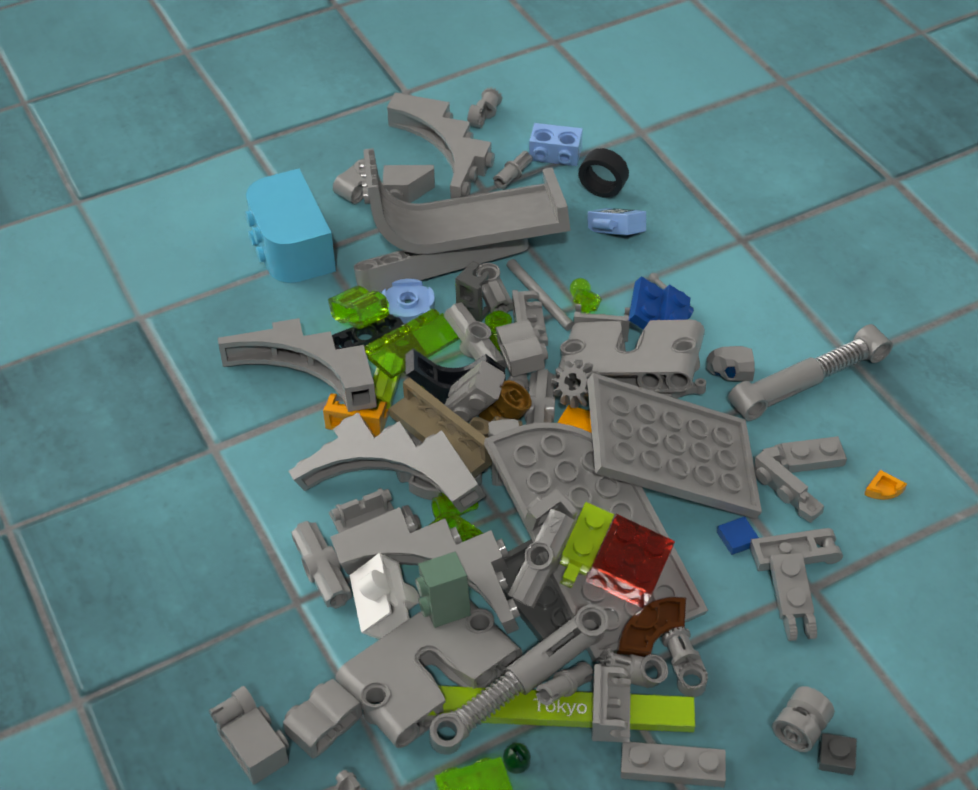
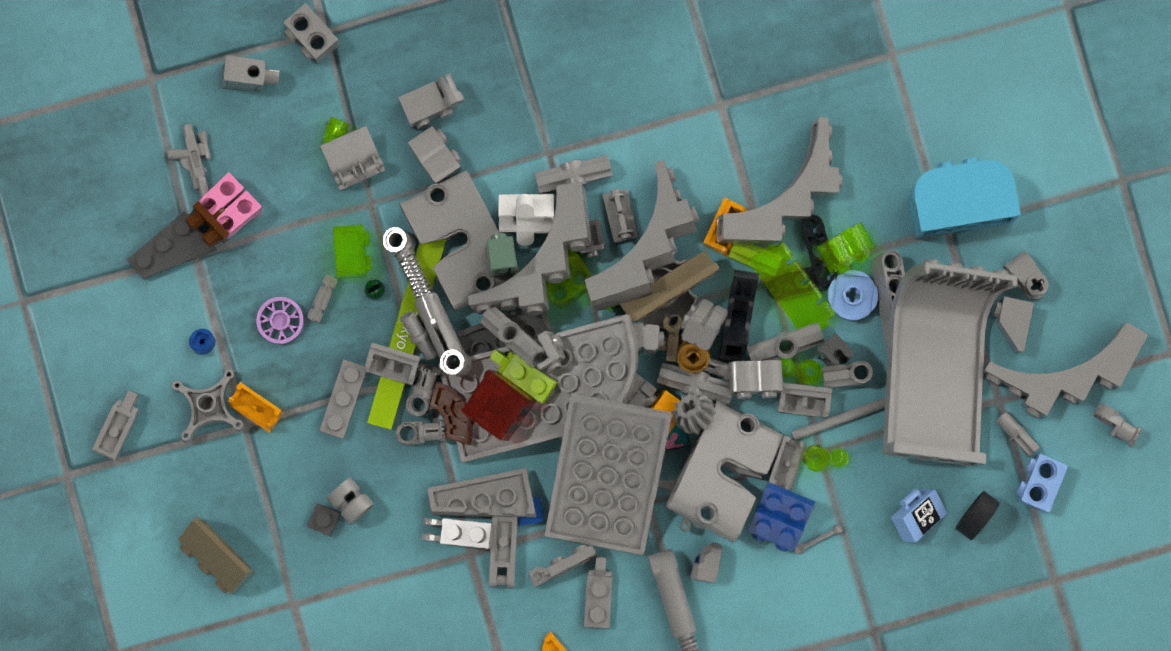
camera: 100 degrees right, 35 degrees up
(738, 574) = (492, 495): none -> light grey wing

